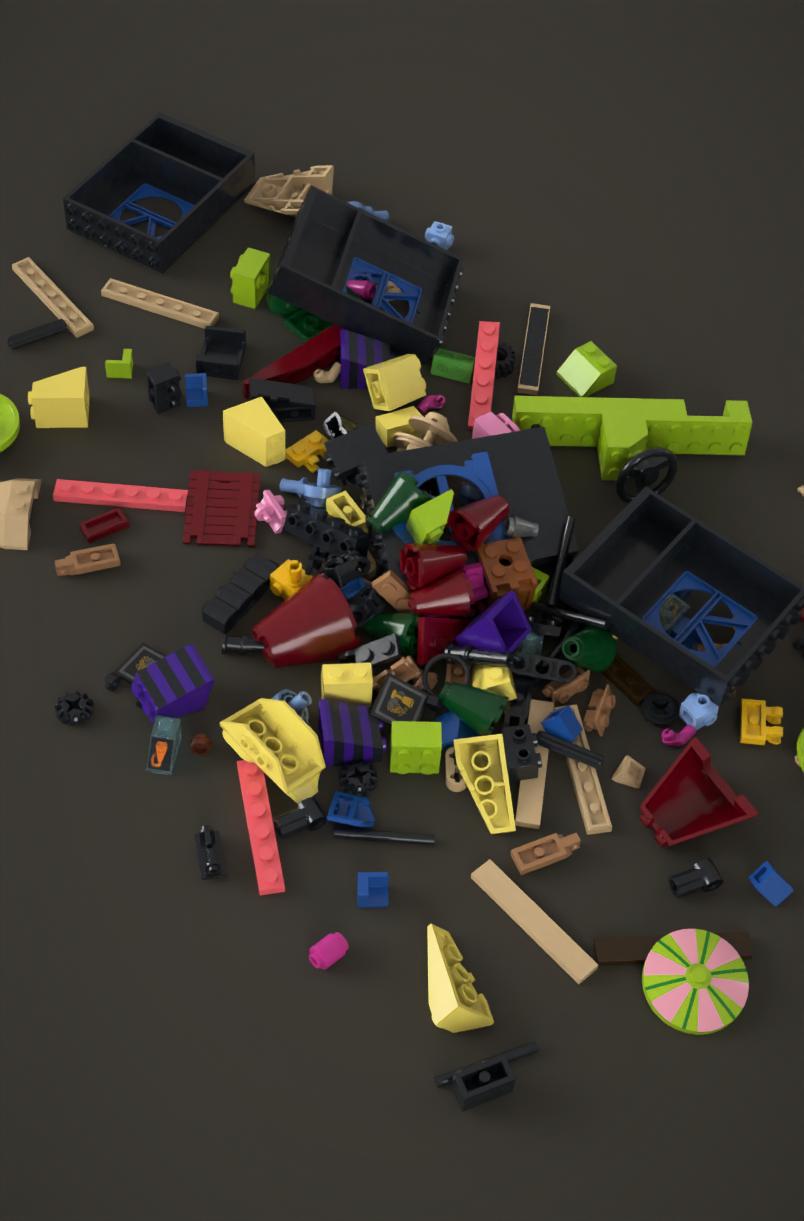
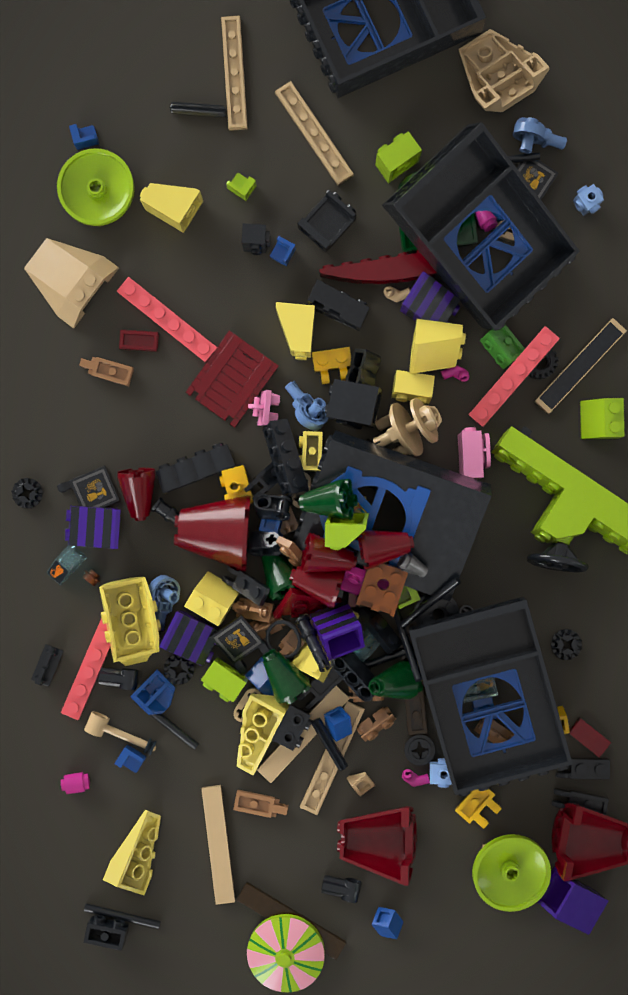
camera: 45 degrees right, 35 degrees up
(195, 629) = (137, 491): none -> dark red cone
(311, 875) = (98, 724): none -> tan piece

